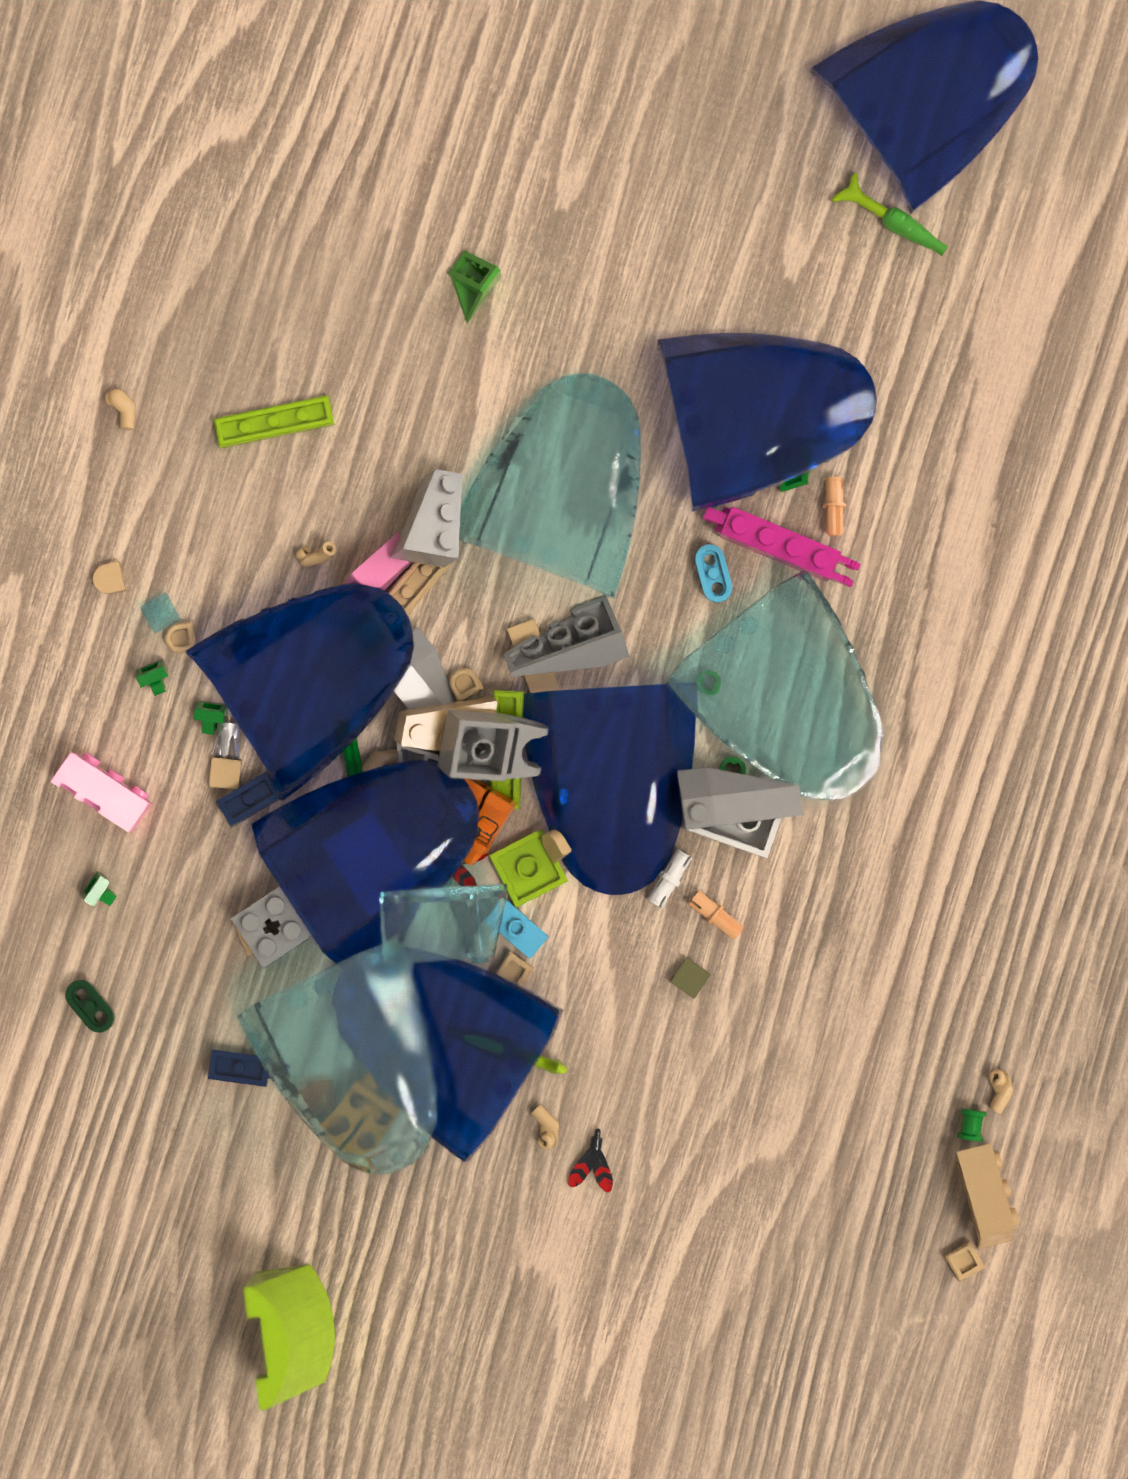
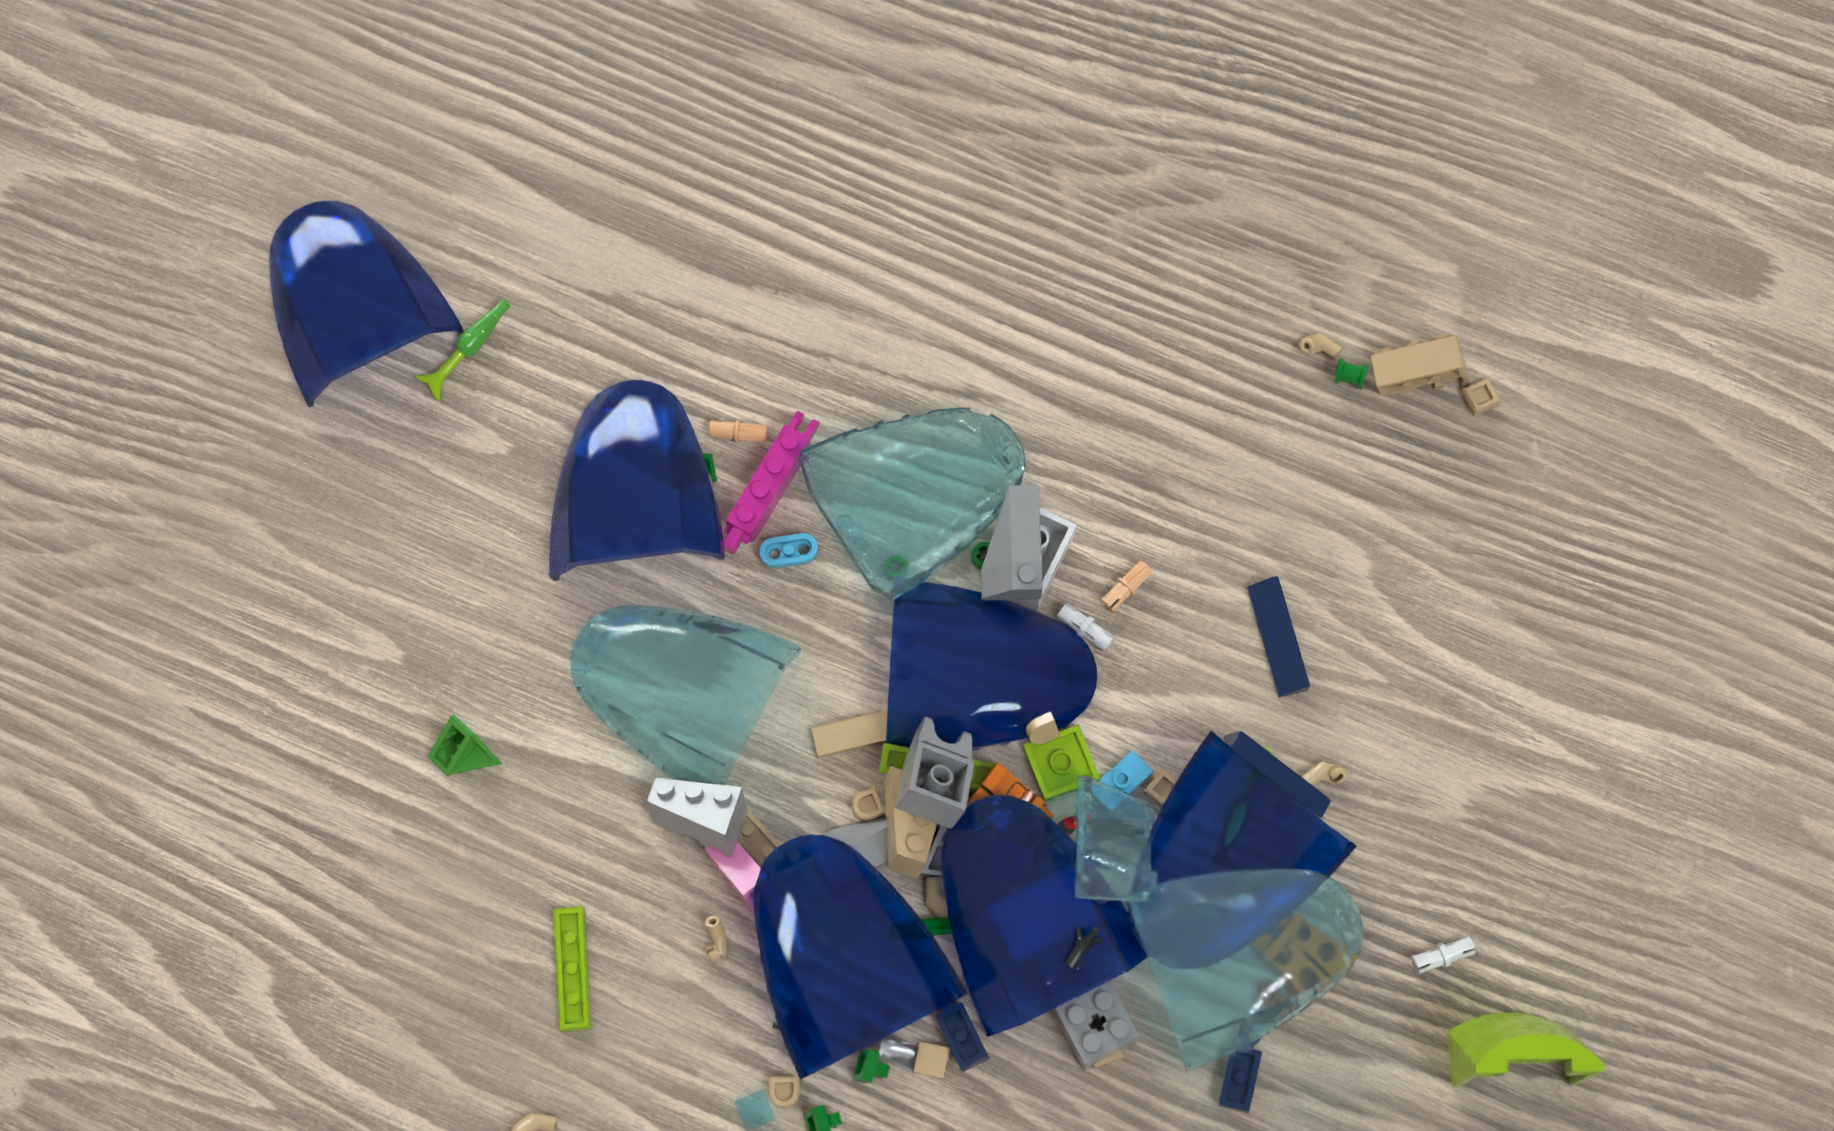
camera: 85 degrees left, 15 degrees down
(335, 903) = (1082, 946): none -> pearl dark grey bar
(380, 1255) = (1443, 955): none -> white pin
(533, 1079) = (1278, 772): none -> dark blue slope
(579, 642) = (839, 683): light grey wedge -> none
(593, 1159) = (1360, 732): piece -> none
(681, 1071) = (1278, 637): none -> dark blue slope
(690, 978) = (1186, 619): olive tile -> none

